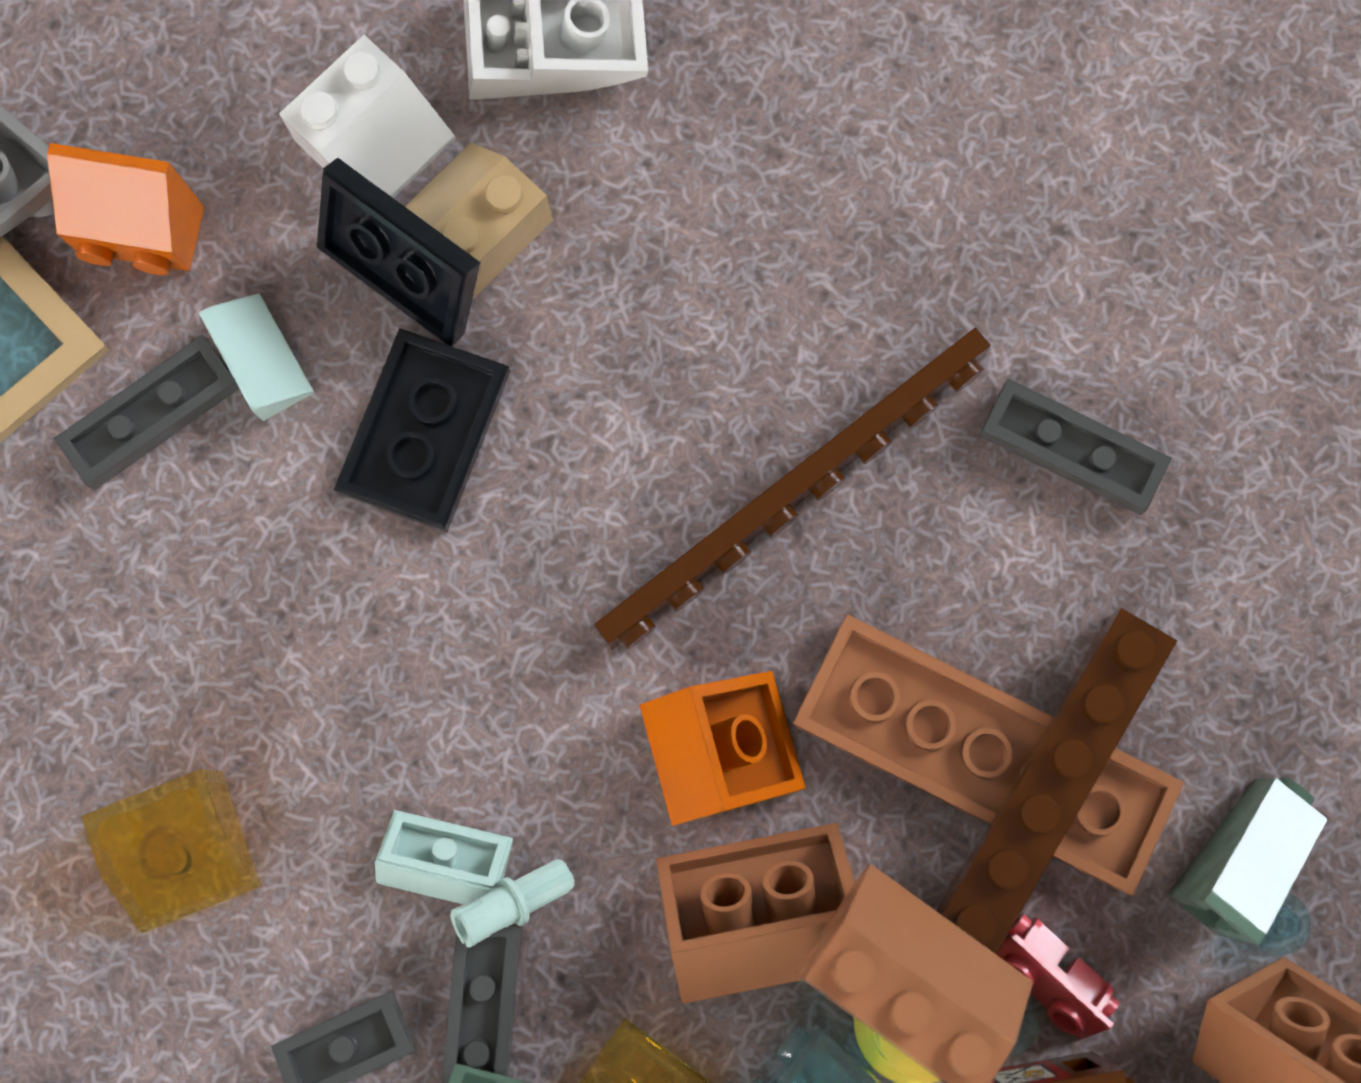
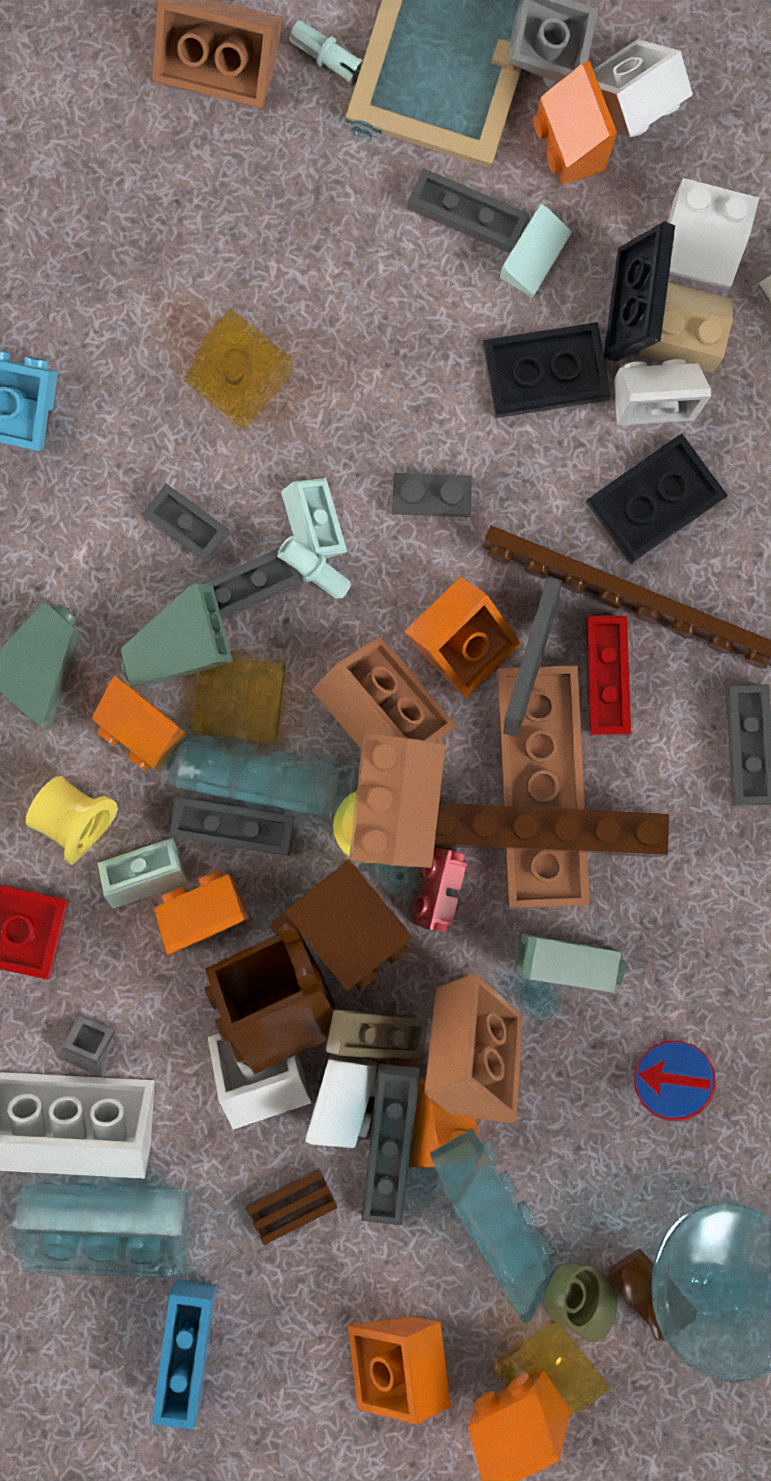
camera: 55 degrees right, 5 degrees up
(124, 95) = (642, 85): none -> white slope
(502, 677) = (432, 495): none -> dark grey plate
(541, 300) = (660, 392): none -> white slope
(677, 384) = (656, 498): none -> black tile
(808, 671) = (532, 657): none -> dark grey tile
(882, 581) = (608, 675): none -> red plate

